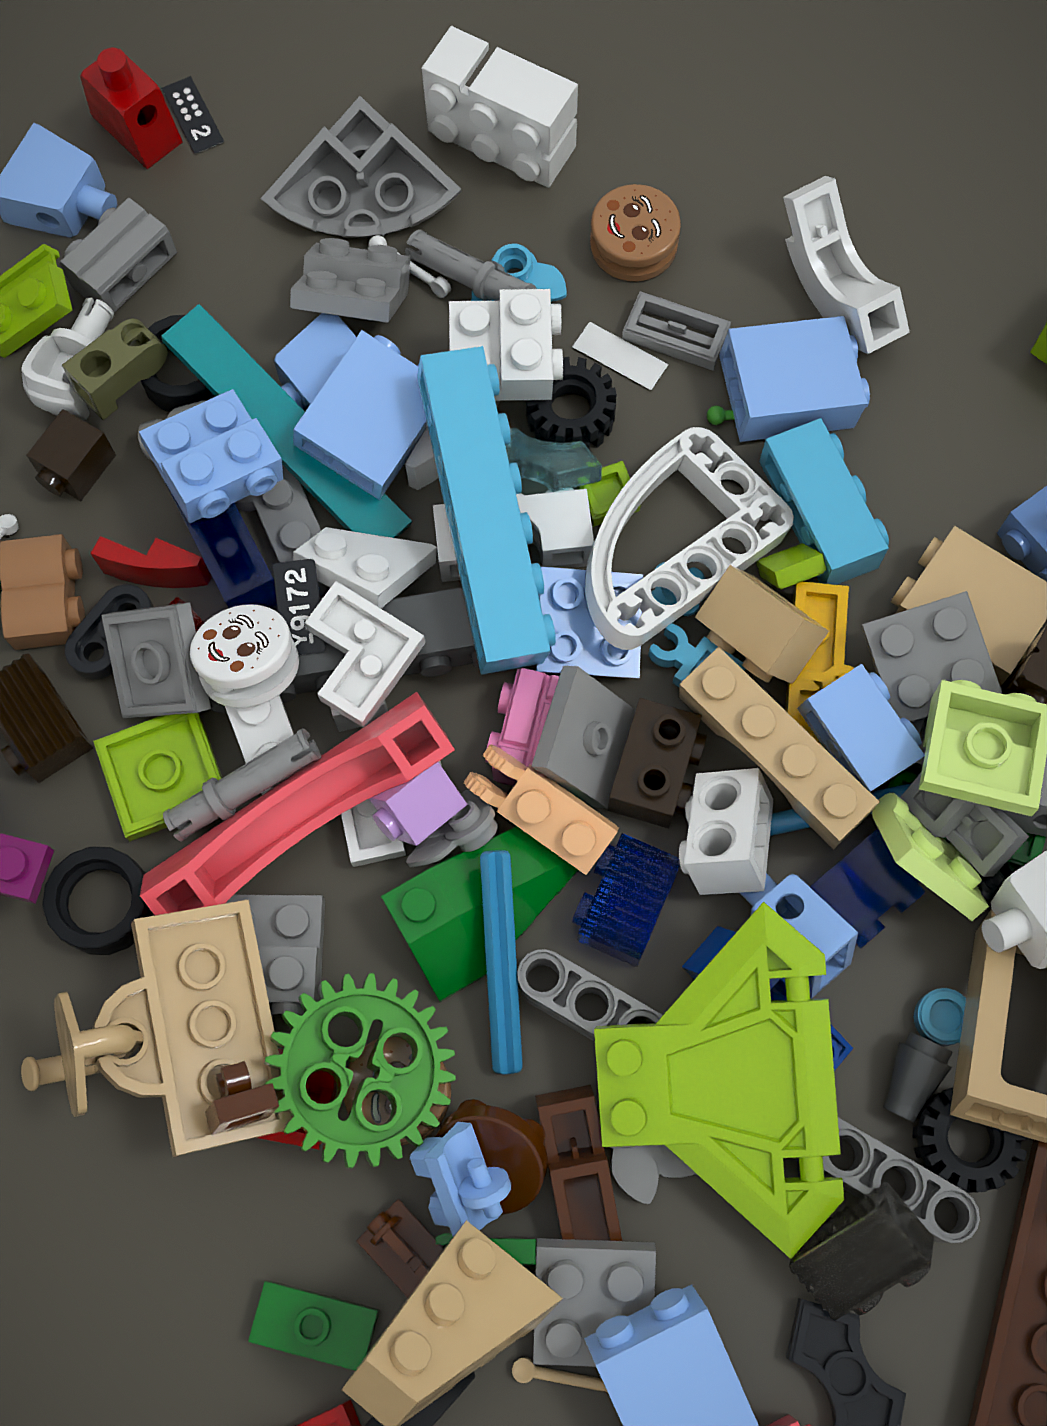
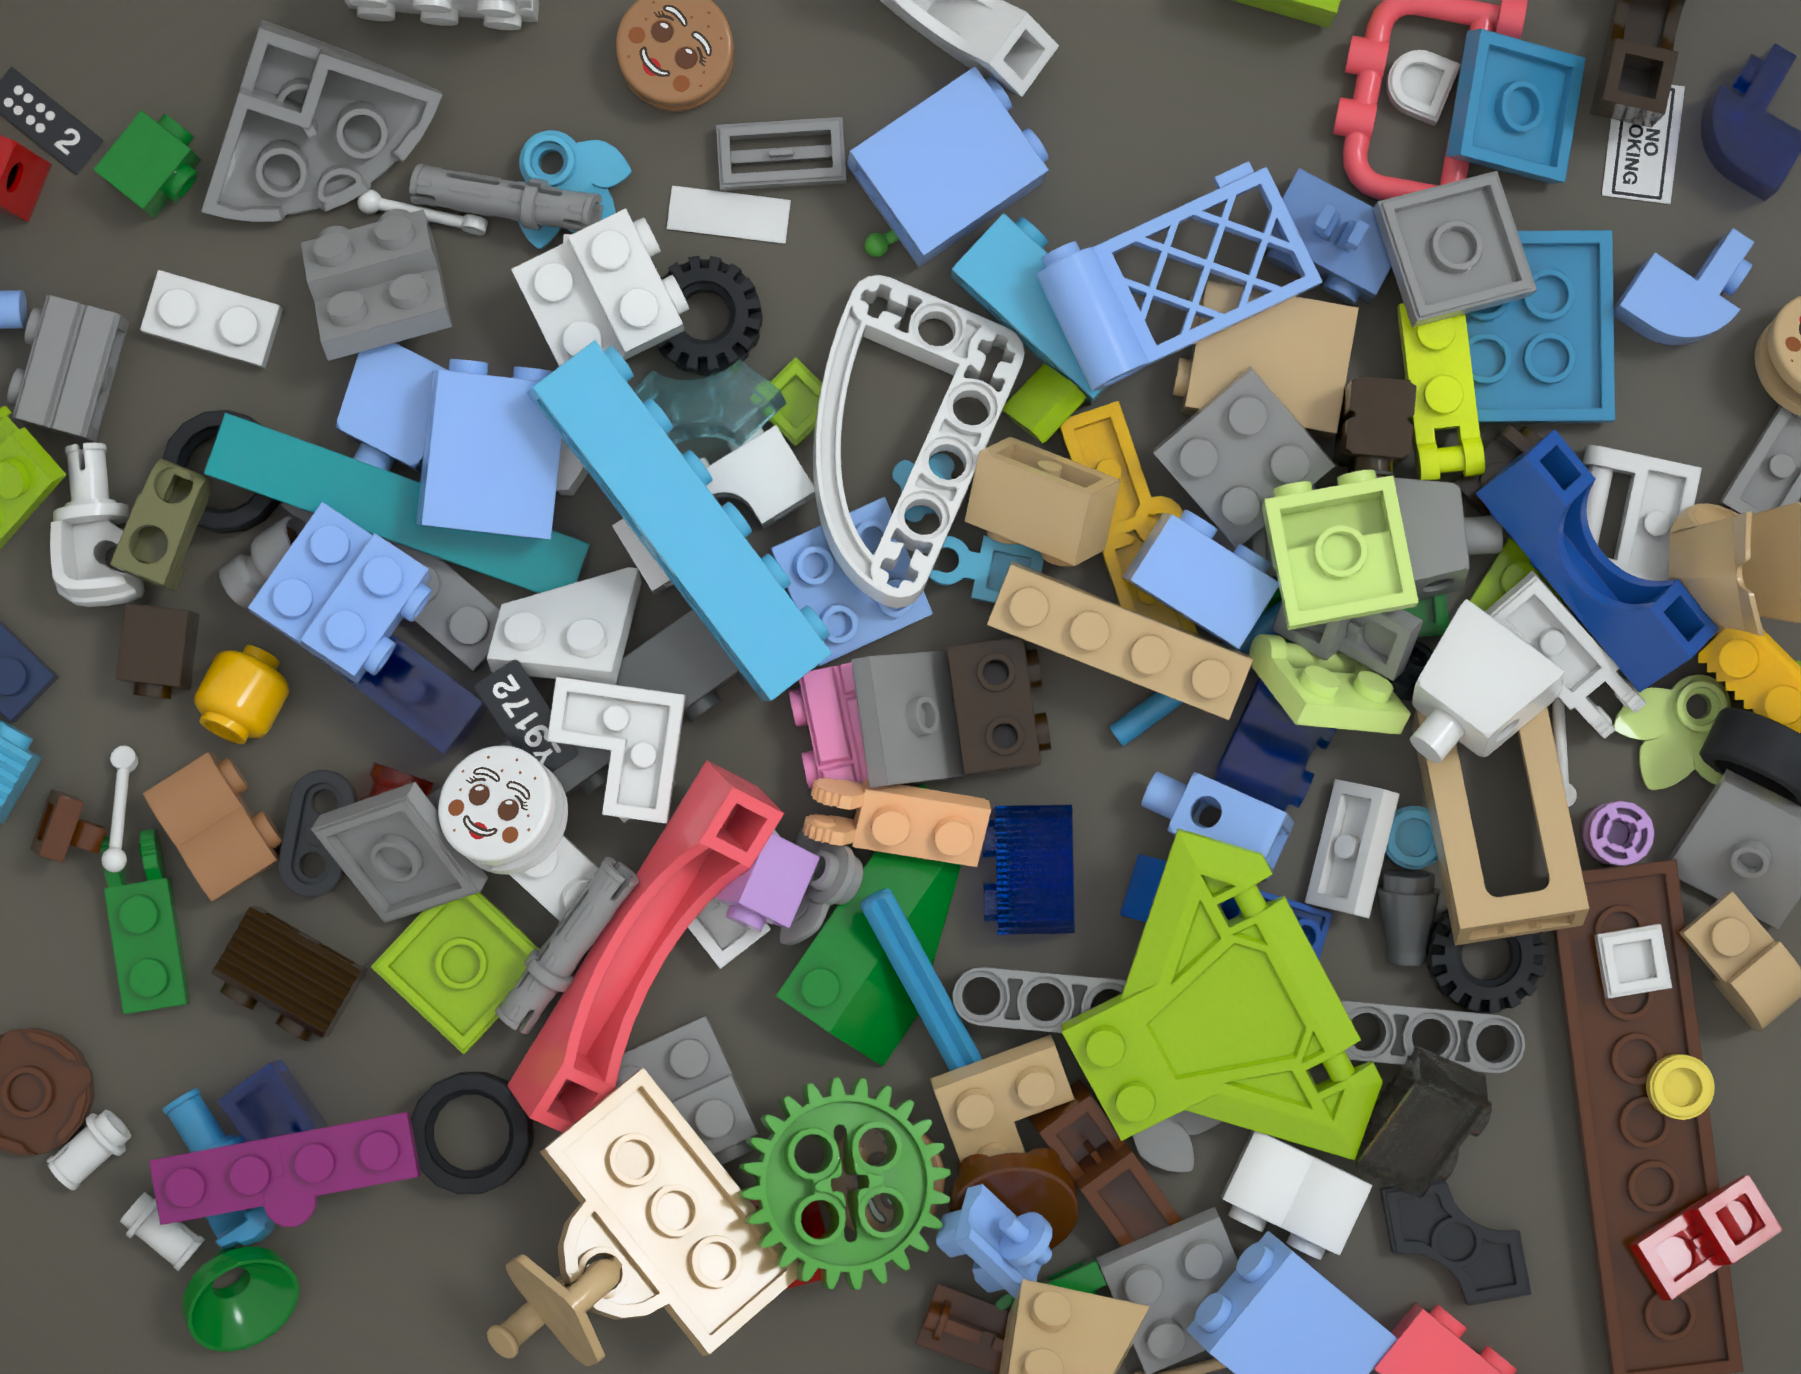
camera: 25 degrees left, 15 degrees up
(110, 510) = (241, 694): none -> yellow head
(161, 567) = (336, 731): red slope -> none
(231, 271) = (211, 319): none -> white plate
(239, 1102) = (745, 1273): reddish brown tile -> none
(243, 156) = (151, 163): none -> green brick
(516, 1059) = (993, 1093): none -> tan plate
(727, 832) = (1118, 746): white brick -> none
(728, 1265) = (1296, 1193): none -> white brick
(867, 504) = (1097, 302): none -> light blue piece
(892, 1000) = (1352, 848): none -> white plate

